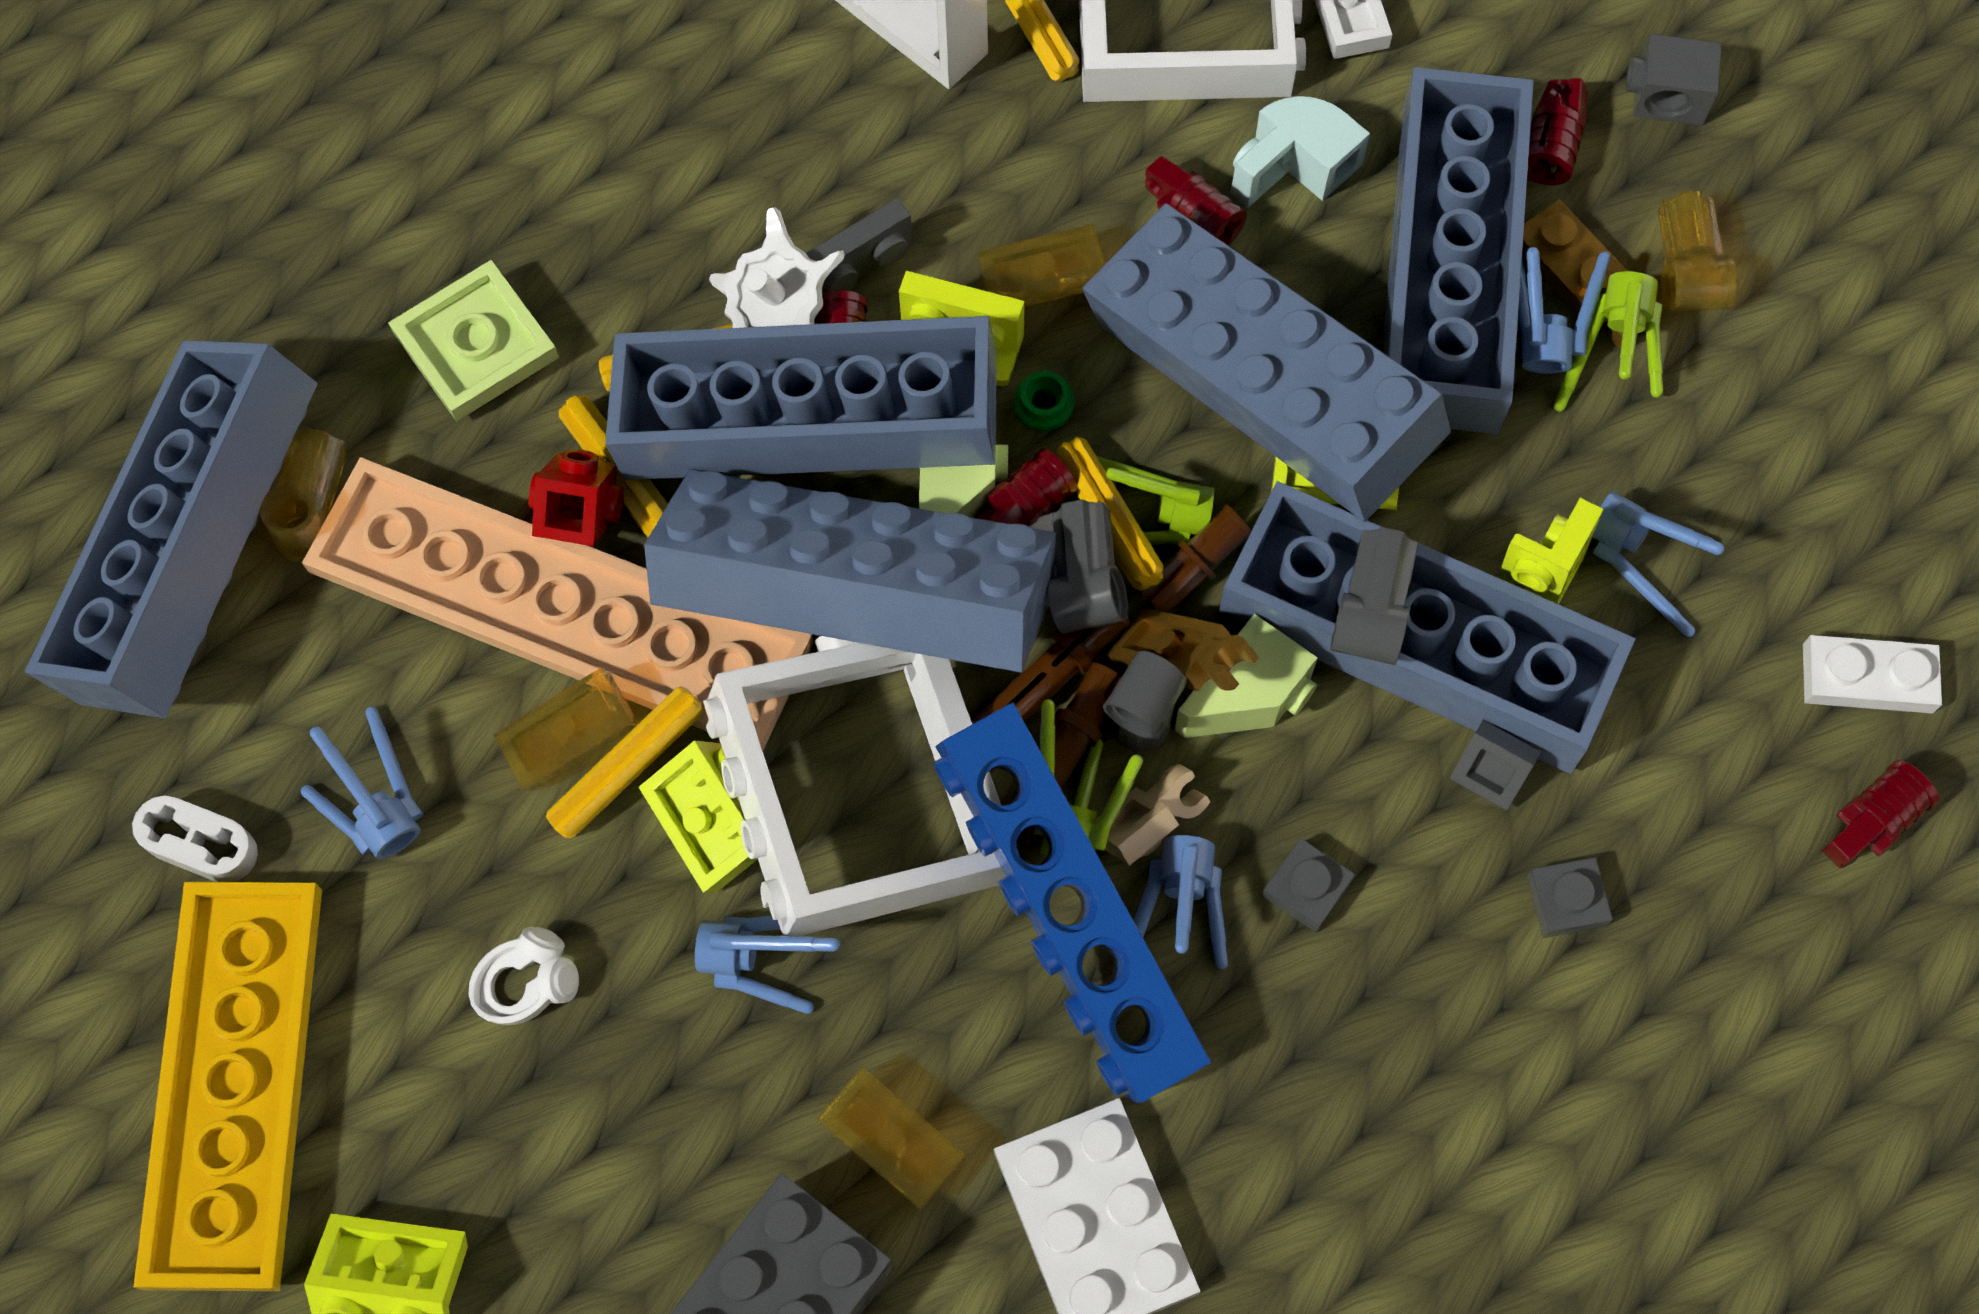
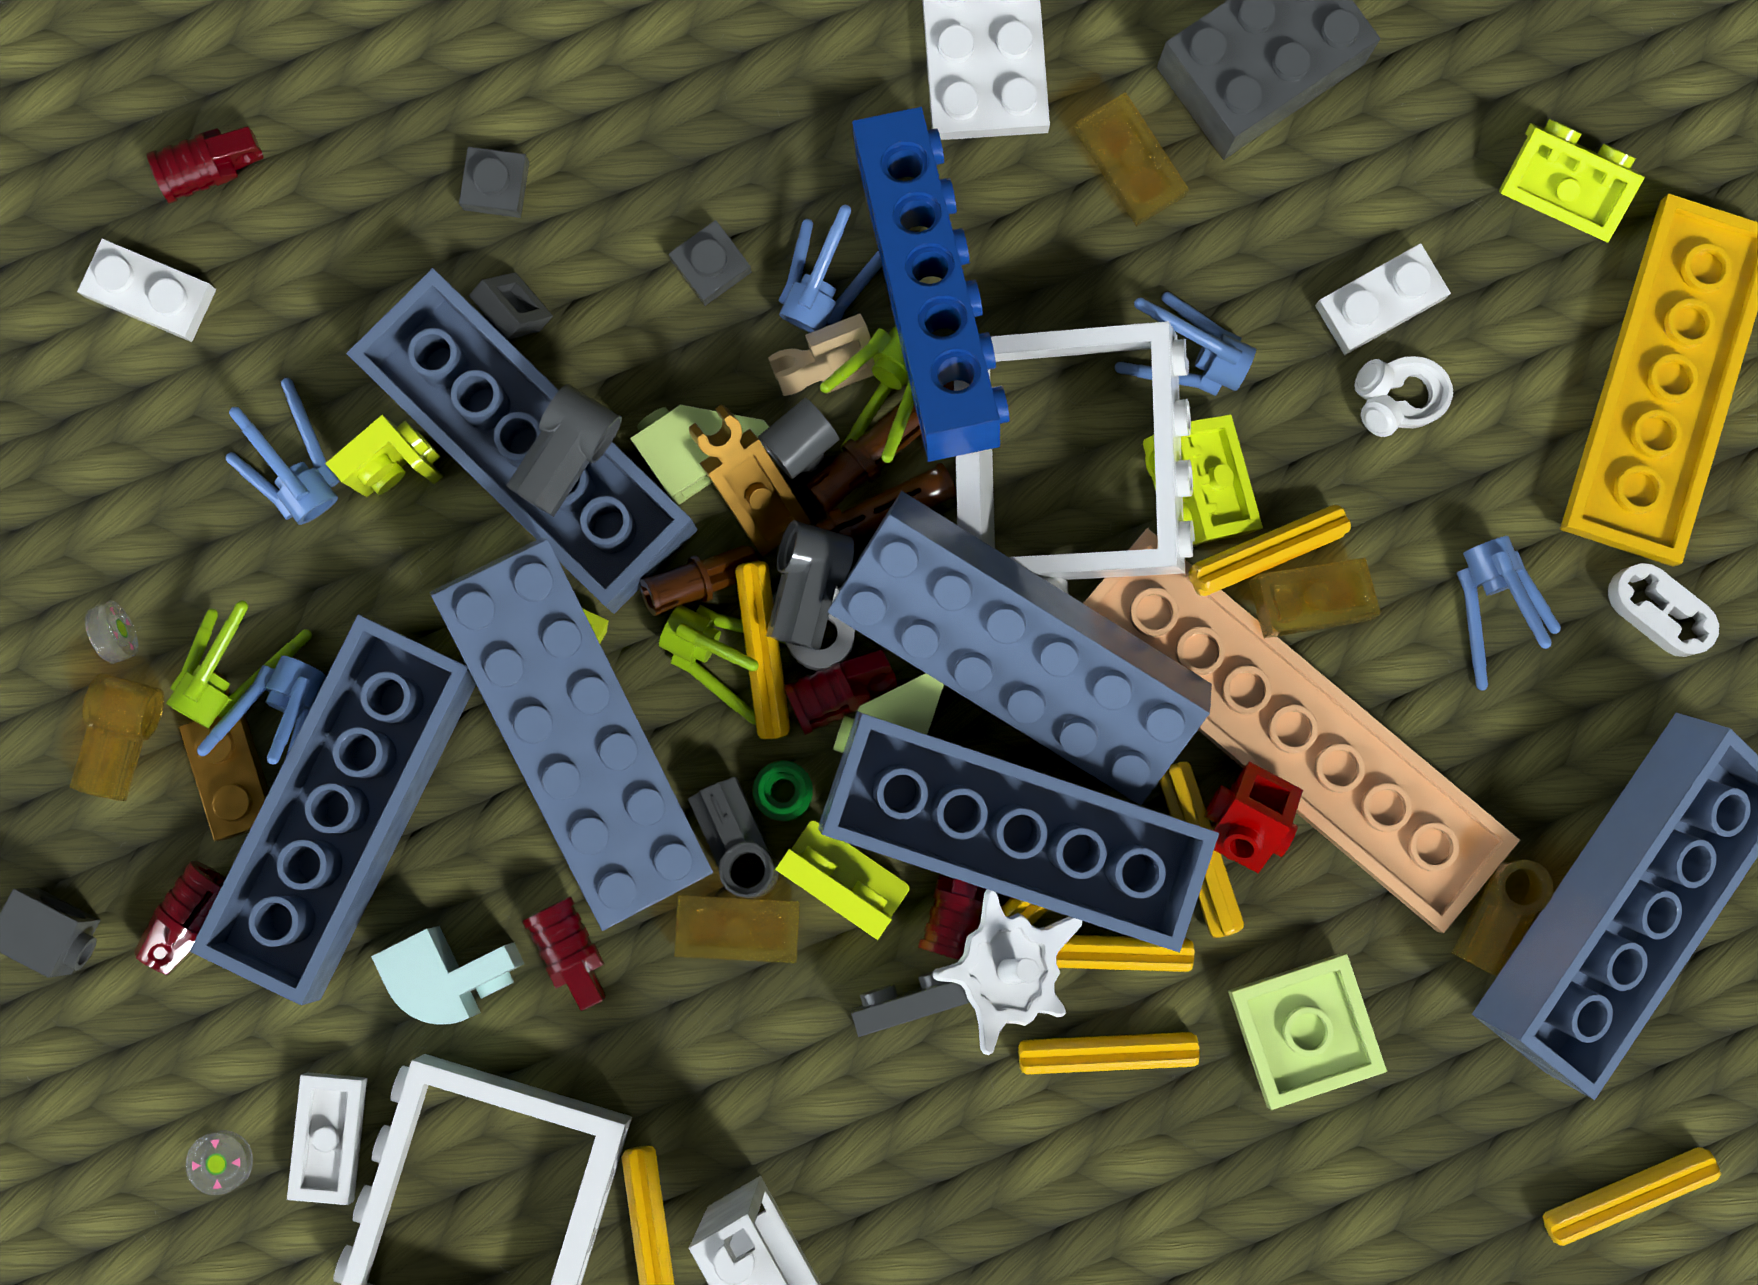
camera: 165 degrees left, 15 degrees up
(129, 295) = (1631, 1196): none -> yellow axle
(570, 1077) = (1382, 299): none -> white plate
(657, 271) = (1108, 1053): none -> yellow axle
(1075, 341) = (733, 834): none -> dark grey piece
(1742, 342) = (111, 632): none -> clear tile

